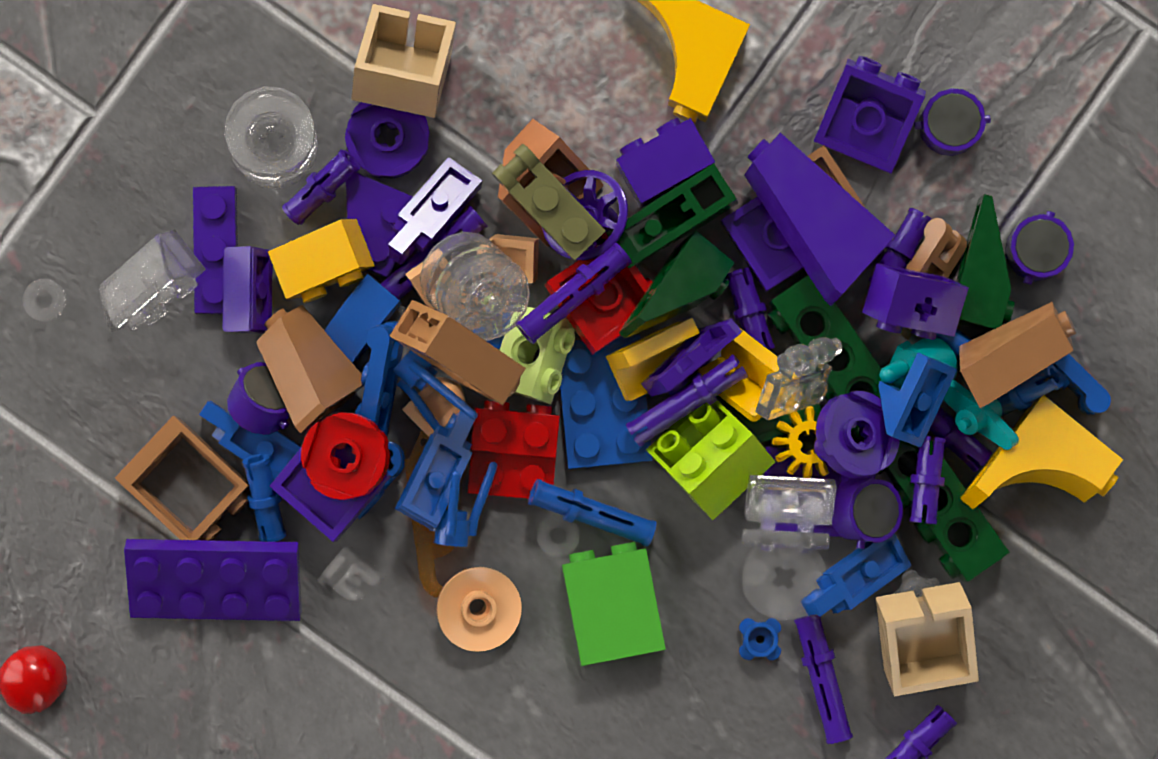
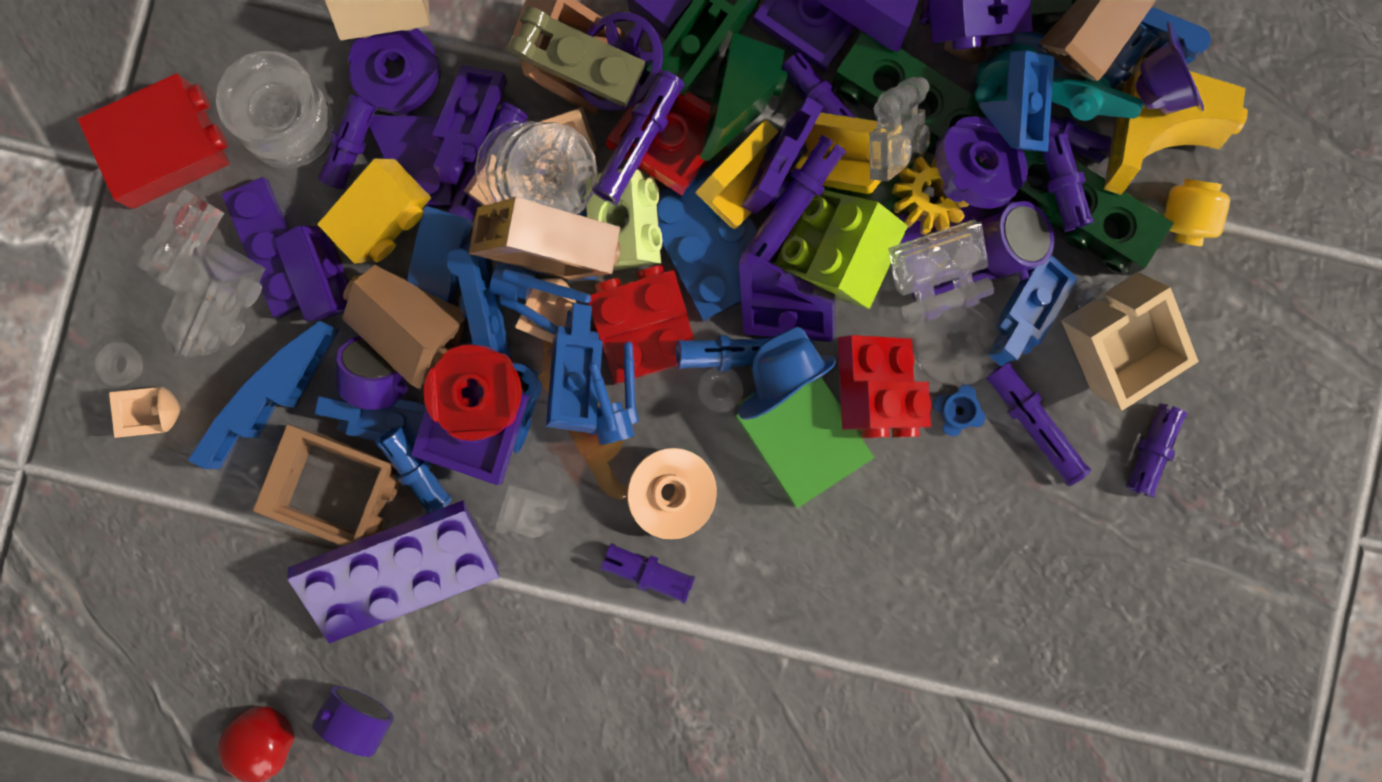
camera: 20 degrees left, 0 degrees up
(50, 350) = (143, 411): none -> light nougat plate
(126, 692) = (352, 721): none -> dark purple piece
(142, 214) = (186, 225): none -> clear plate
(154, 117) = (155, 141): none -> red brick
(177, 373) = (276, 382): none -> blue slope
(430, 669) = (647, 573): none -> dark purple pin
(614, 542) = (782, 369): none -> blue piece
(642, 484) = (780, 300): none -> dark purple wing
(697, 591) = (881, 388): none -> red plate
(1038, 549) = (1196, 211): none -> yellow head
(1052, 425) = (1167, 80): none -> dark purple piece

